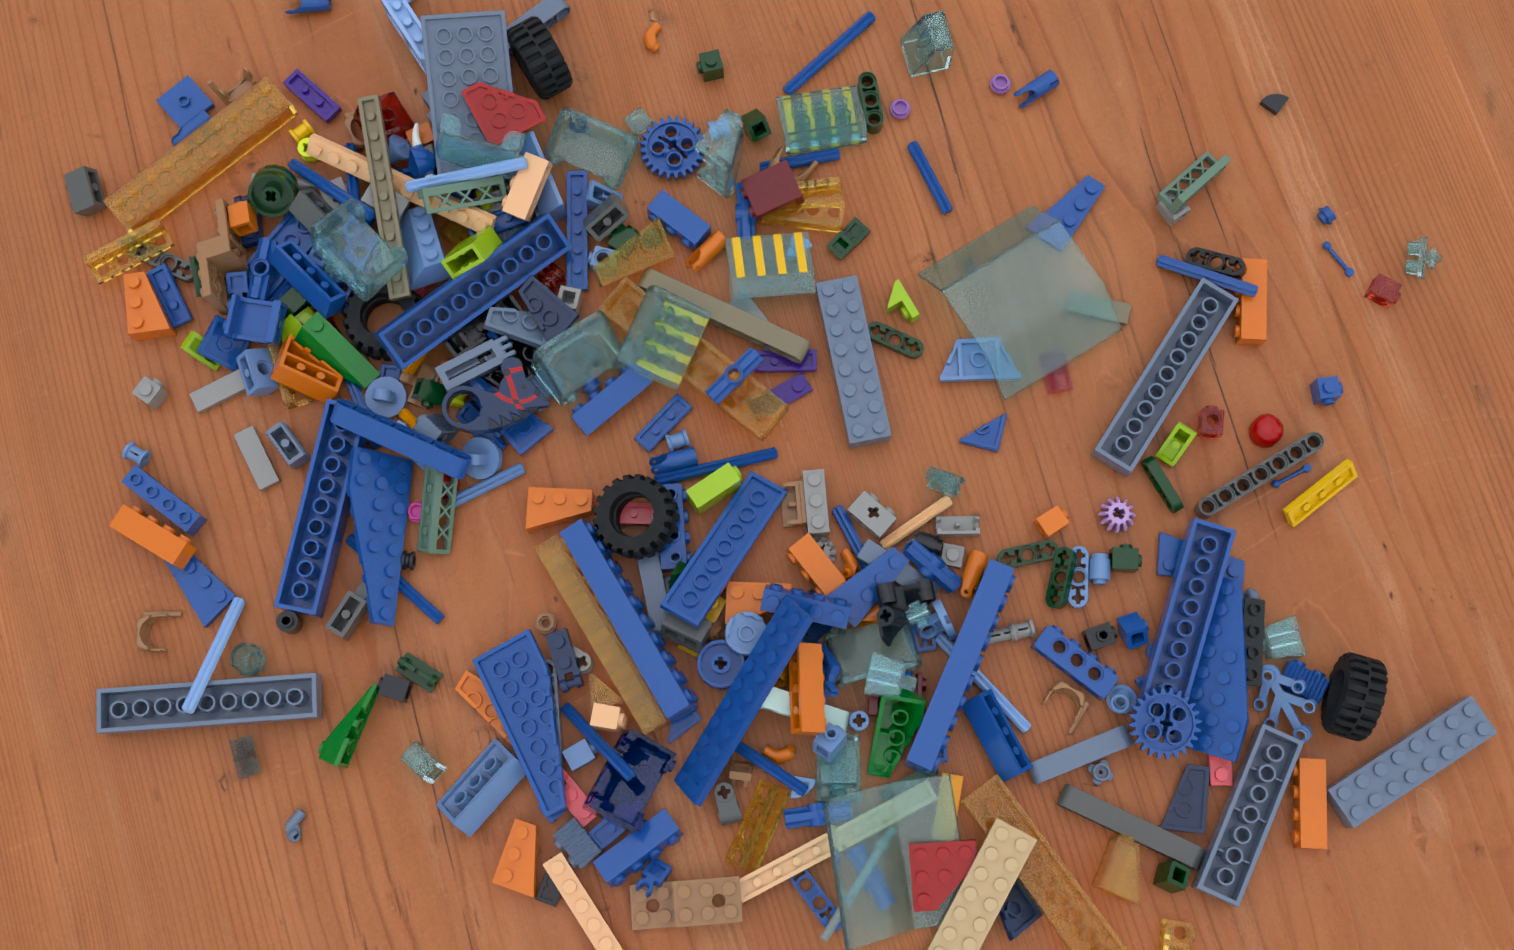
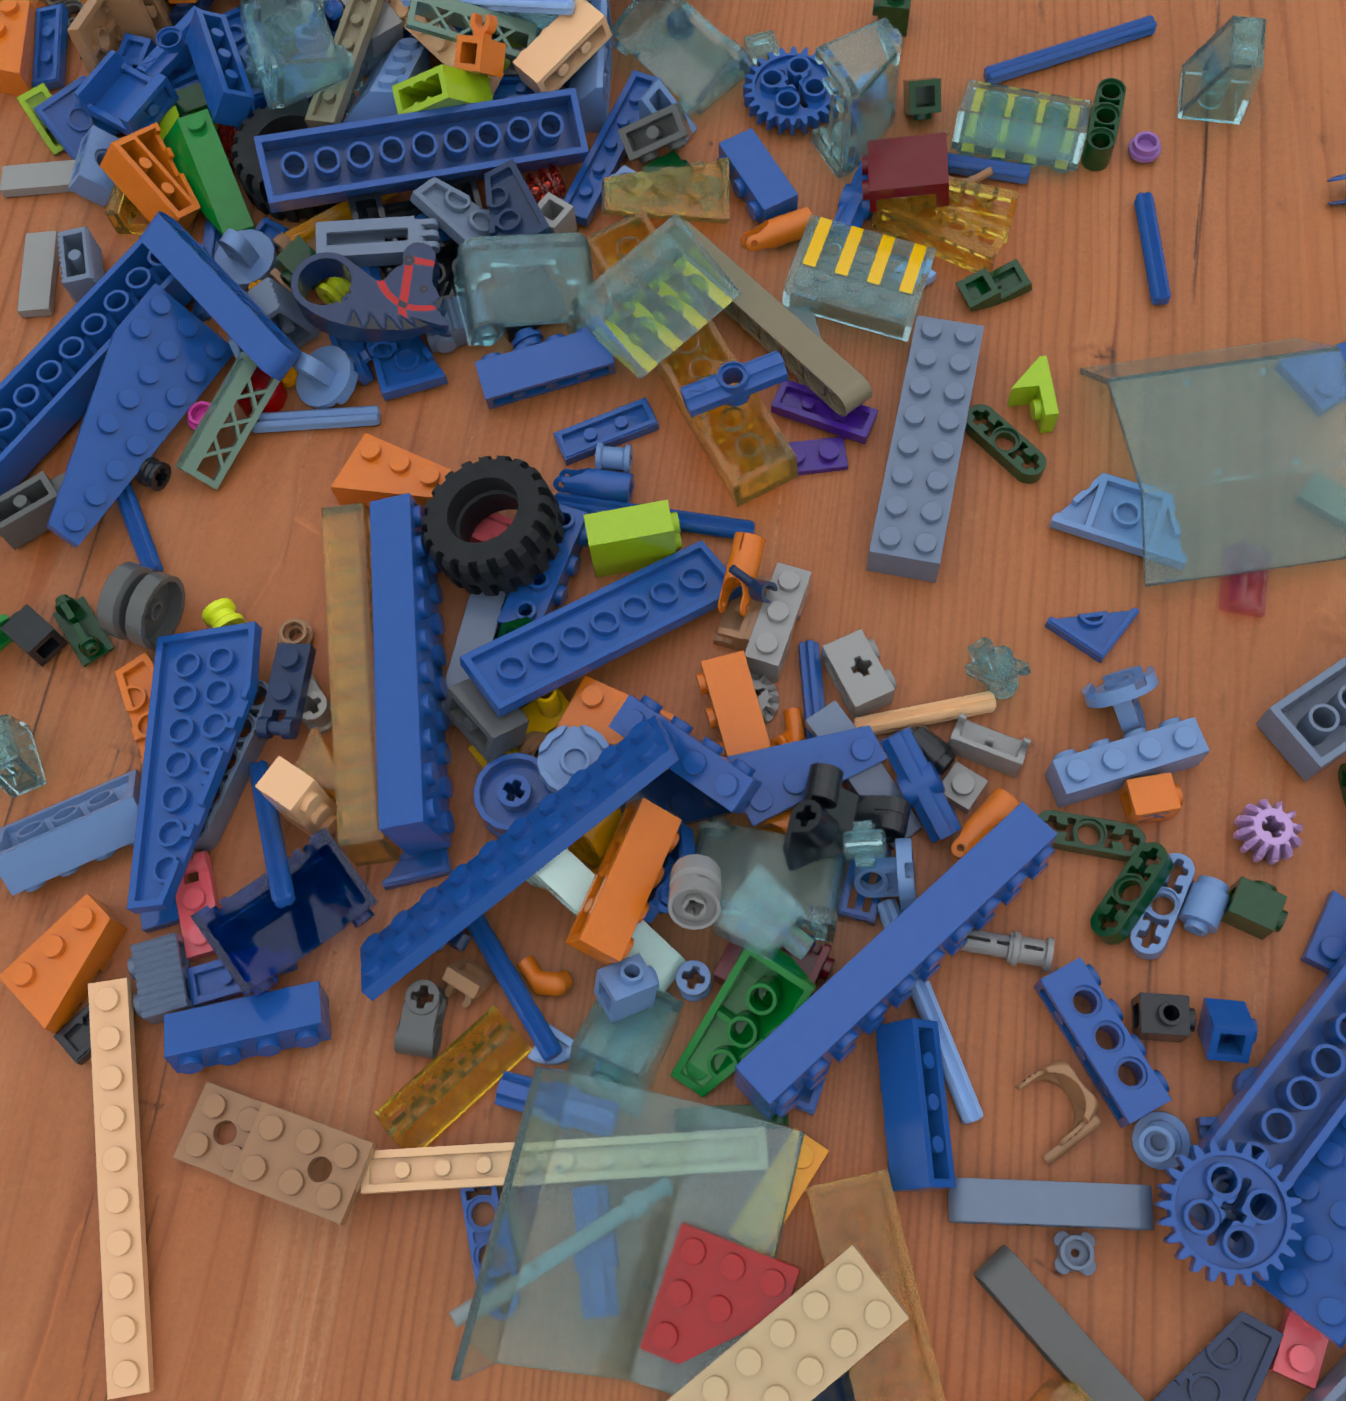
camera: 30 degrees right, 10 degrees down
(452, 645) = (140, 604): none -> dark grey wheel
(484, 217) = (480, 52): none -> orange brick
(500, 631) = (222, 613): none -> neon yellow wheel
(580, 754) = (236, 845): medium blue brick -> none
(654, 874) = (250, 1081): blue plate -> none
(785, 483) = (746, 555): none -> orange piece
(799, 492) = (755, 586): none -> dark blue hand
(847, 680) = (695, 892): none -> light grey wheel
(1000, 84) = (1311, 163): medium lavender plate -> none
(1016, 469) = (1122, 692): none -> medium blue tile
(1029, 509) = (1140, 753): none -> medium blue brick

